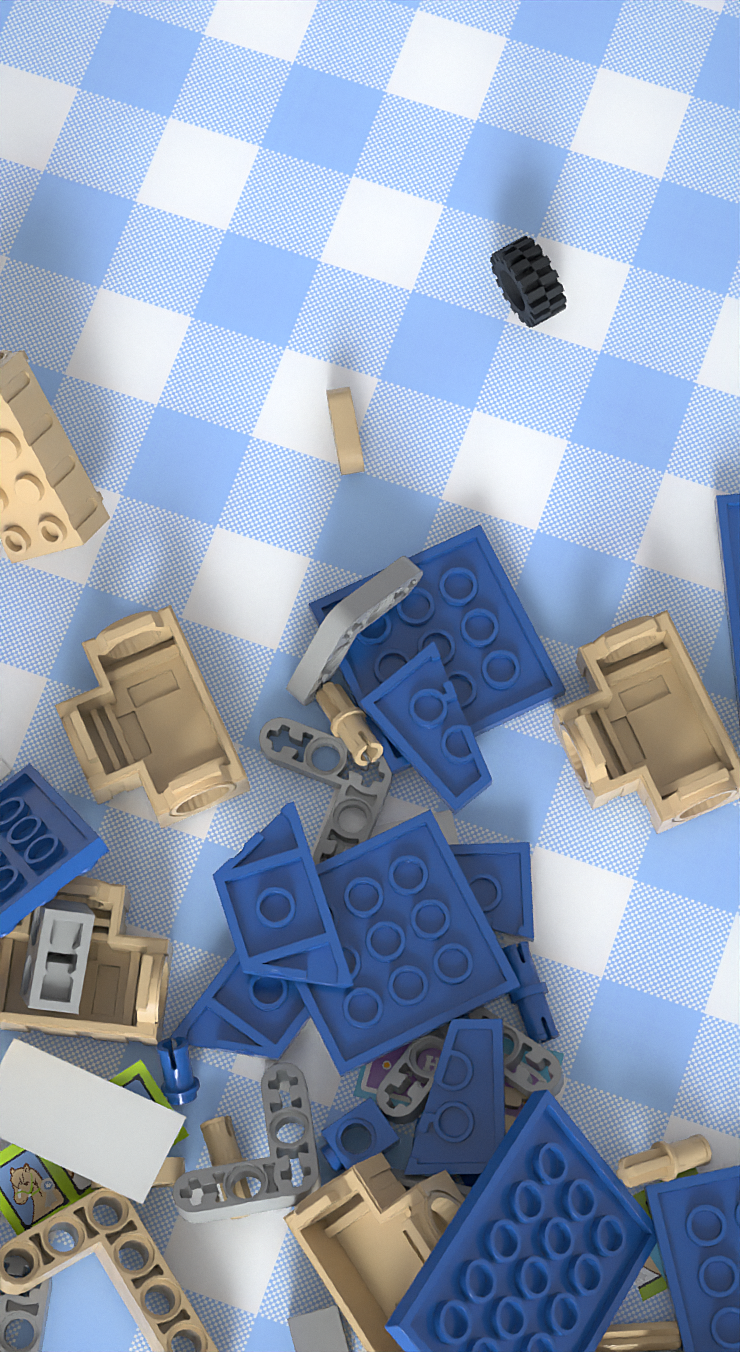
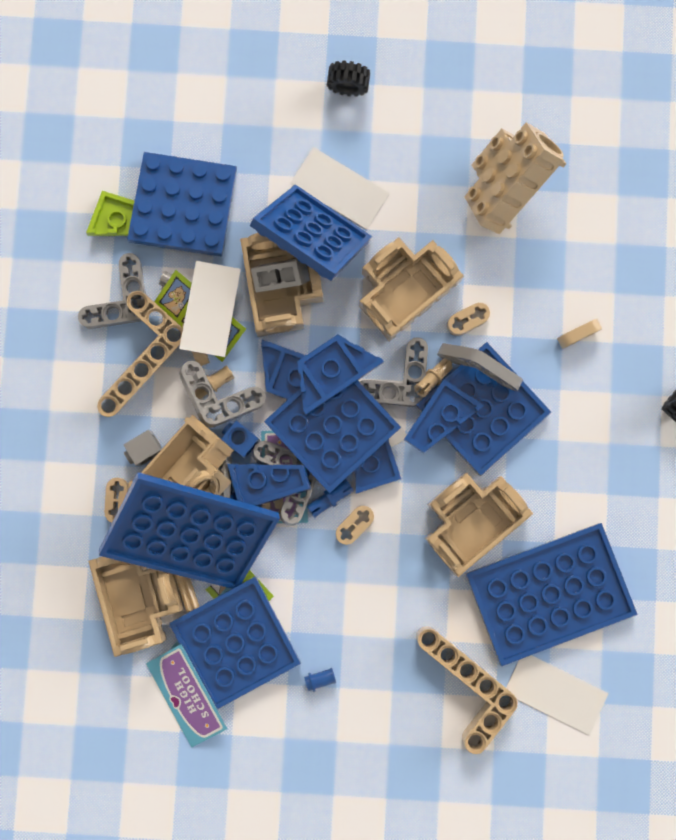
camera: 70 degrees right, 10 degrees up
(179, 1082) = (242, 350): blue pin -> none
(242, 630) = (470, 324): none -> tan beam
(604, 954) = (358, 529): none -> tan beam
(664, 1161) = (268, 582): tan axle -> none

